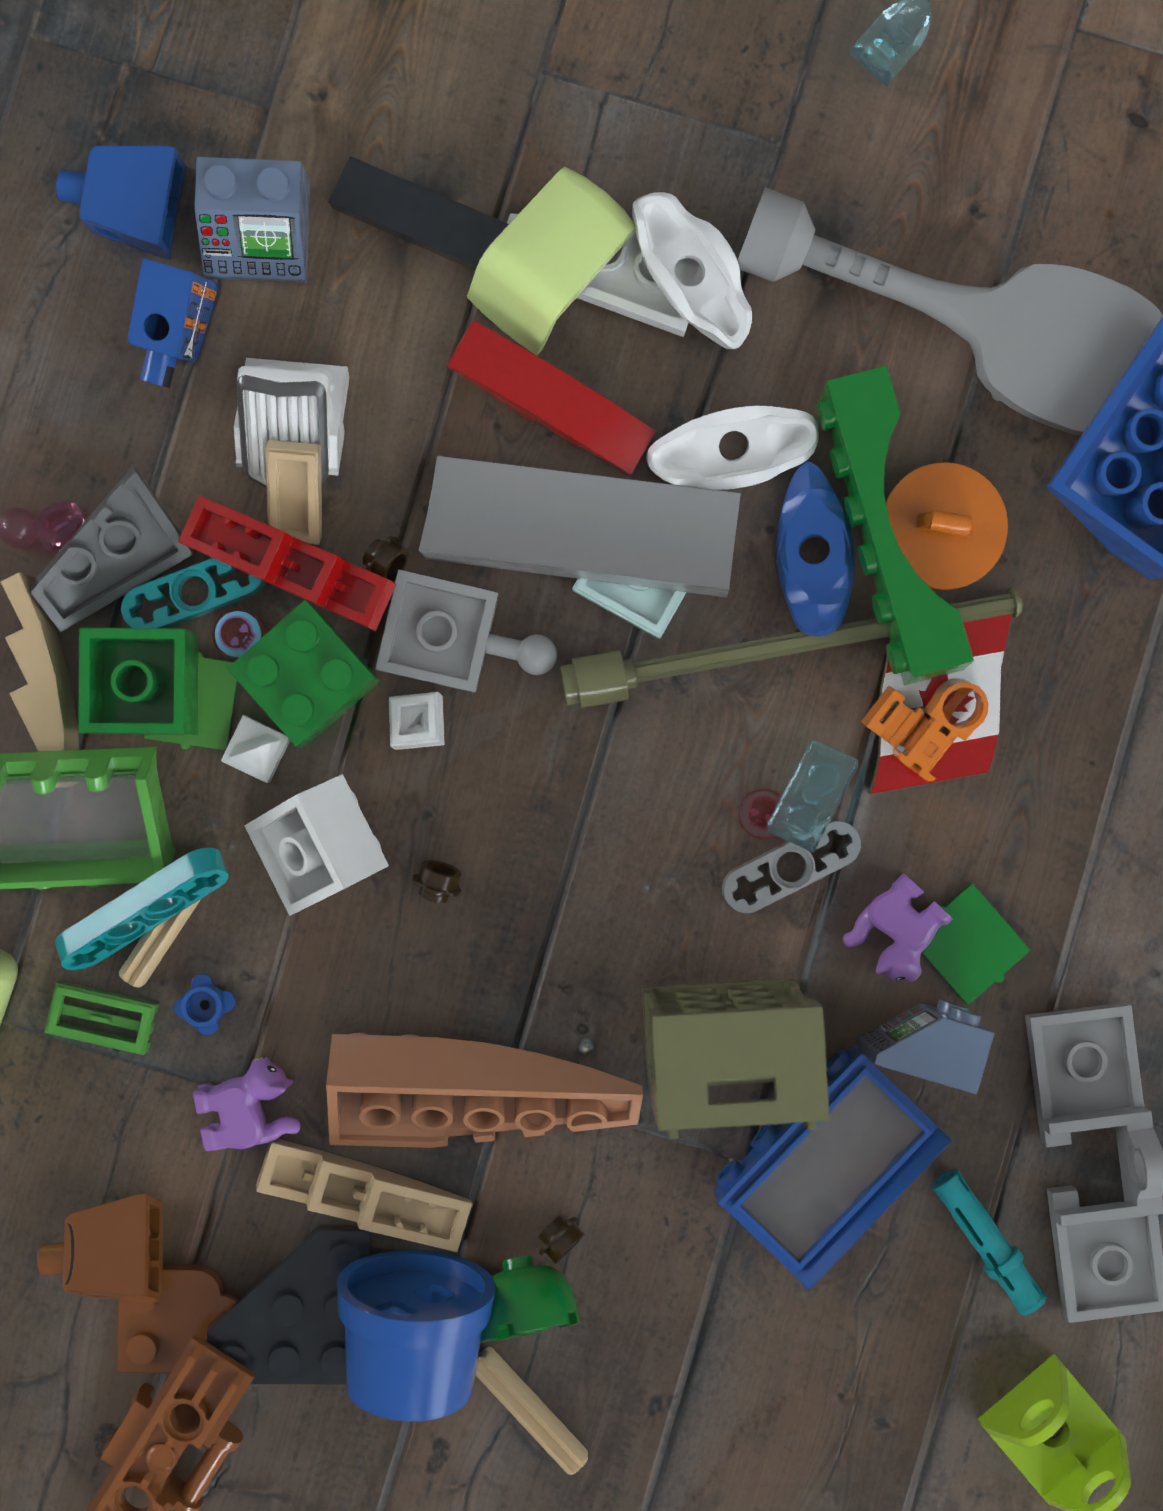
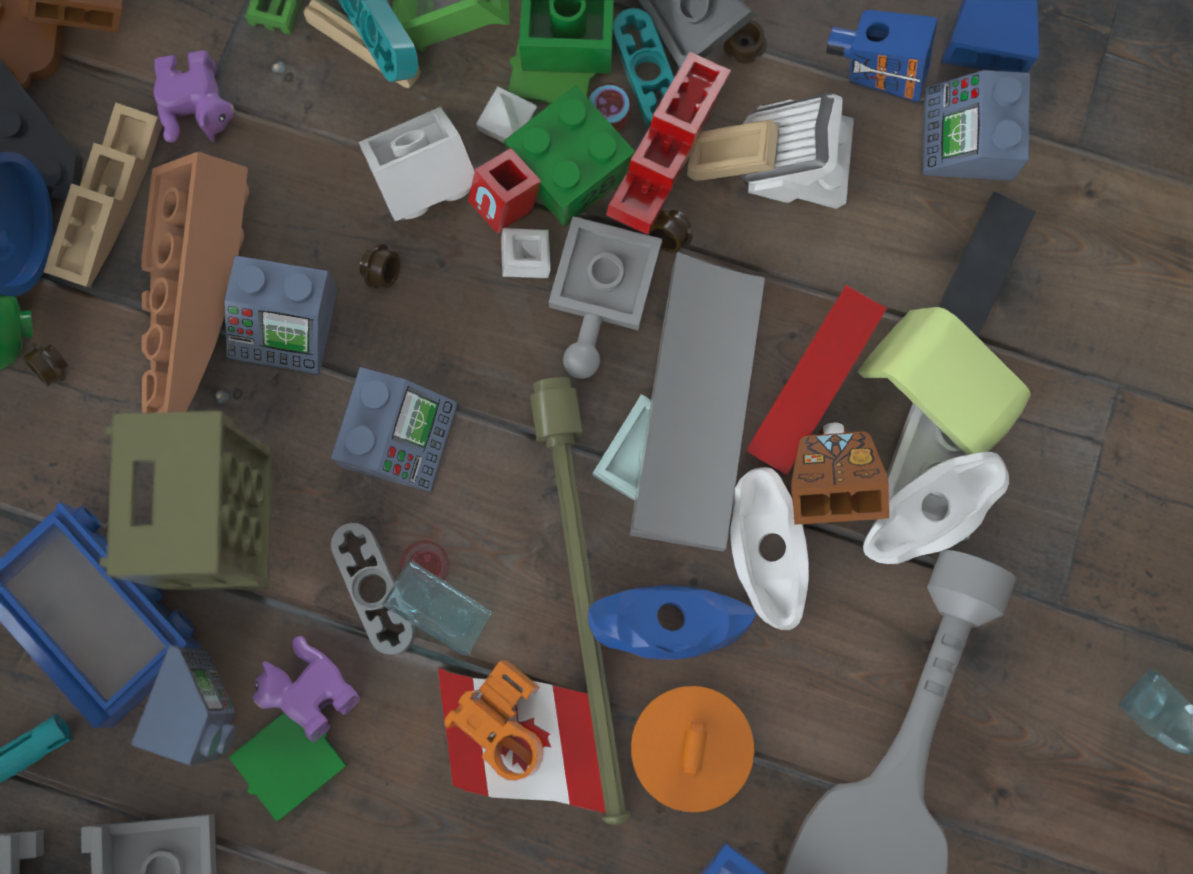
camera: 95 degrees right, 10 degrees down
(170, 478) = (757, 43): none -> dark brown plate
(190, 1005) = (283, 56): blue plate -> none
(350, 745) = (503, 190): none -> red brick
(499, 988) = (278, 314): none -> sand blue slope
(624, 852) = (394, 430): none -> sand blue slope
(664, 372) = (838, 478): none -> dark orange torso
(922, 626) = (592, 716): green arch -> none

